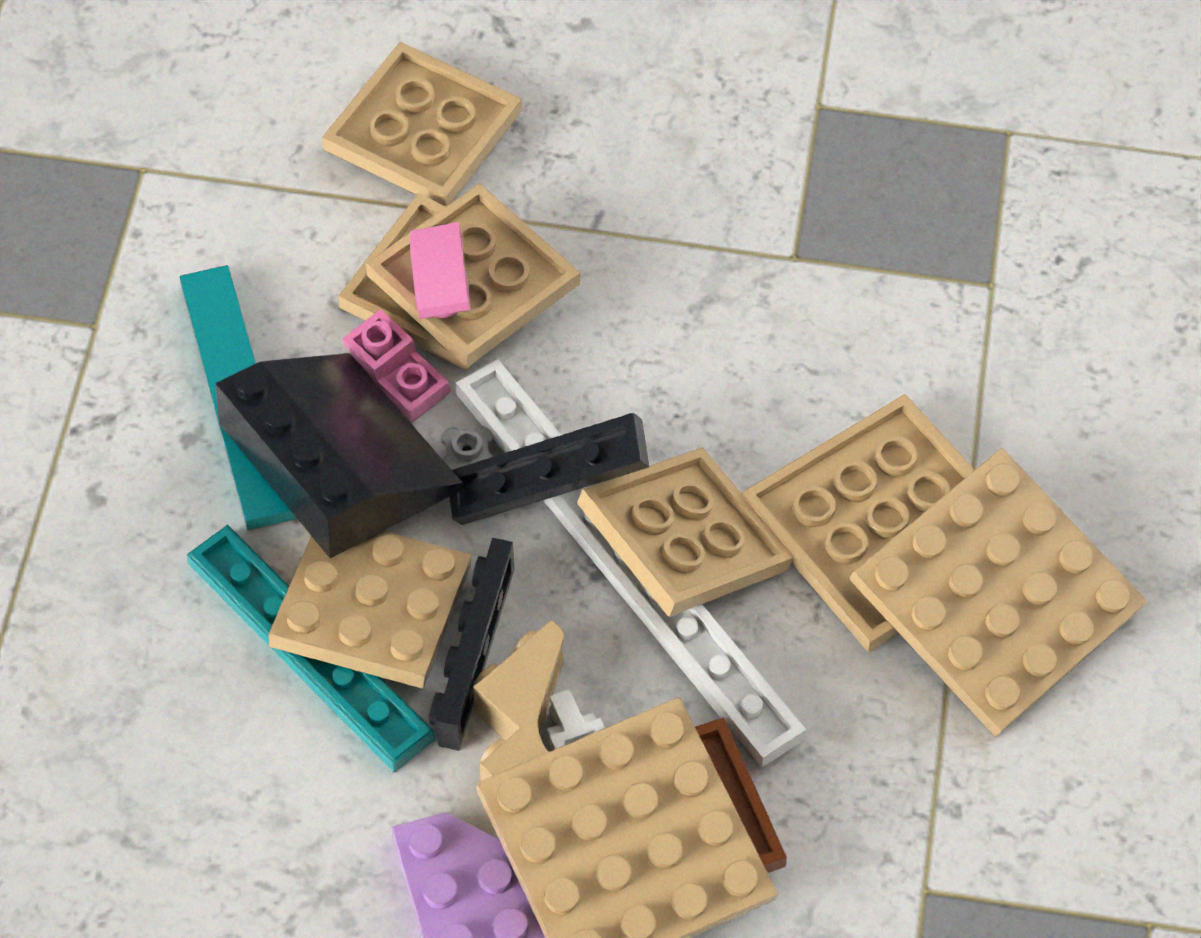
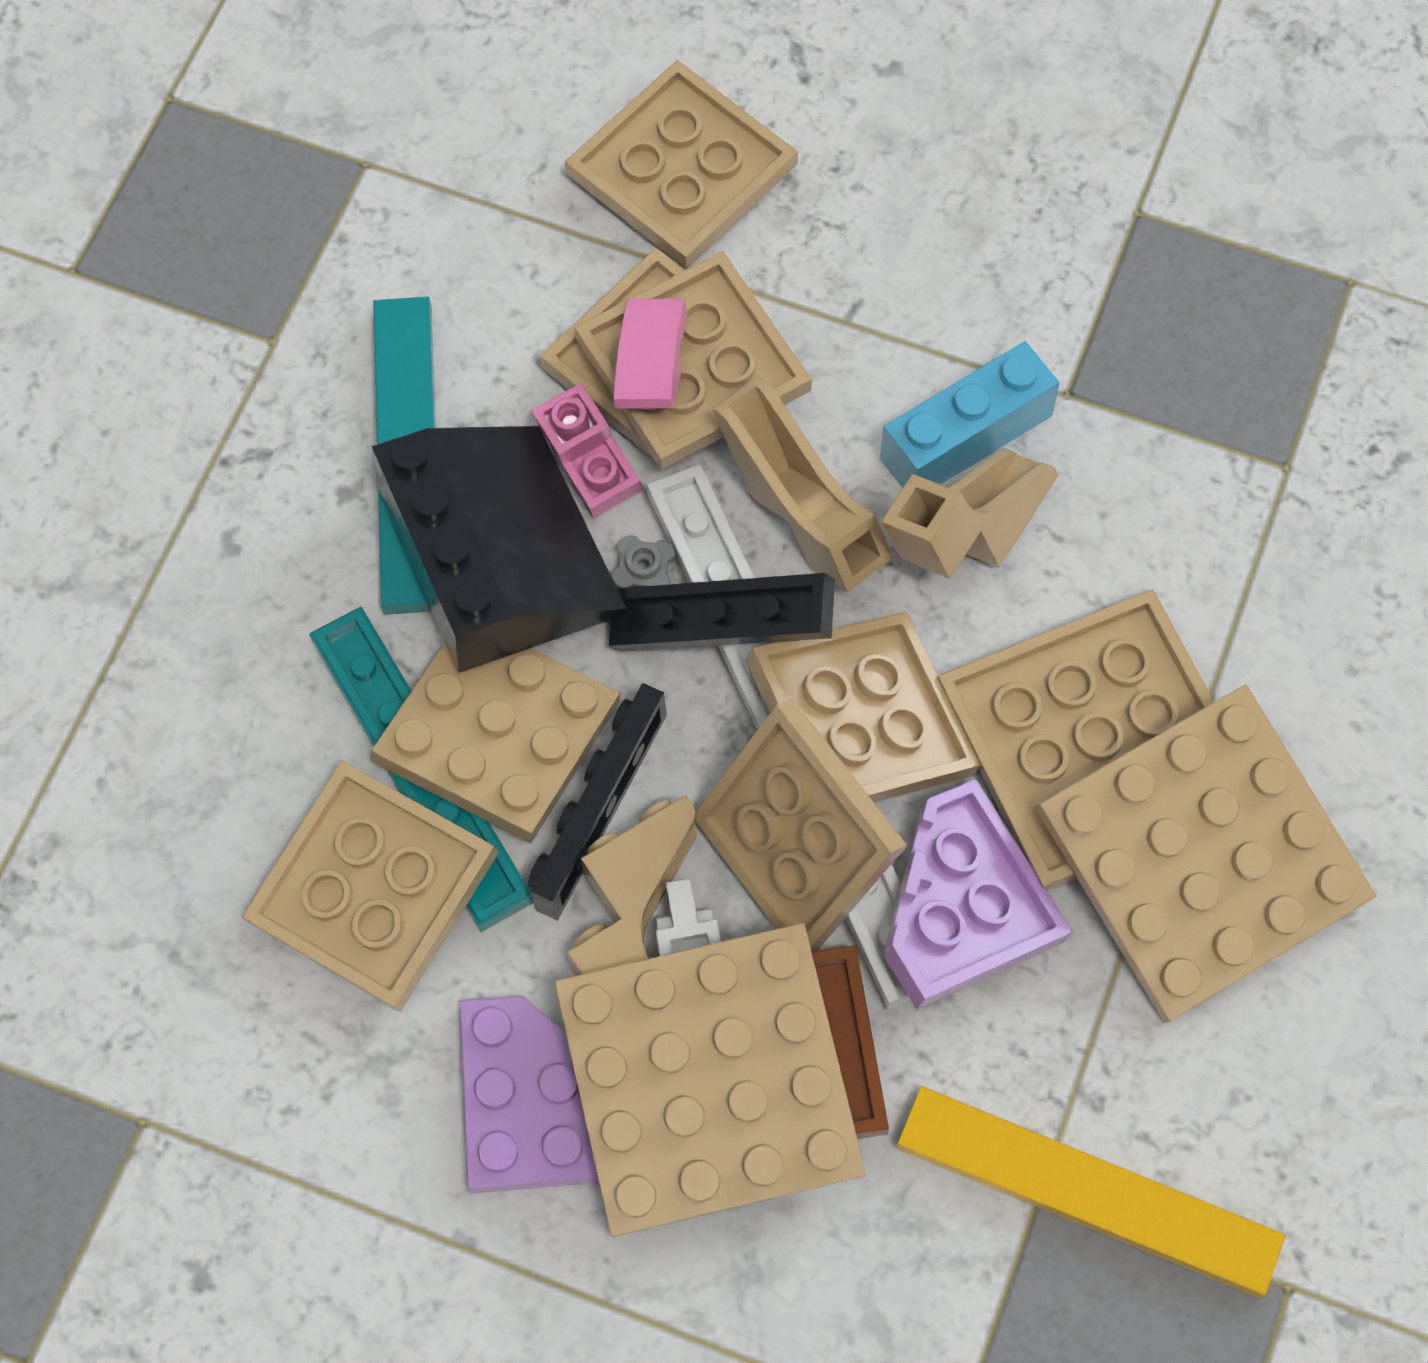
camera: 15 degrees right, 10 degrees up
(292, 745) = (370, 885): none -> tan plate
(580, 356) = (794, 483): none -> tan arch
(654, 622) = (798, 826): none -> tan plate
(718, 288) = (970, 418): none -> medium azure brick
(739, 360) = (972, 517): none -> tan arch
(809, 663) = (966, 900): none -> lavender plate
(967, 879) = (1092, 1192): none -> yellow tile

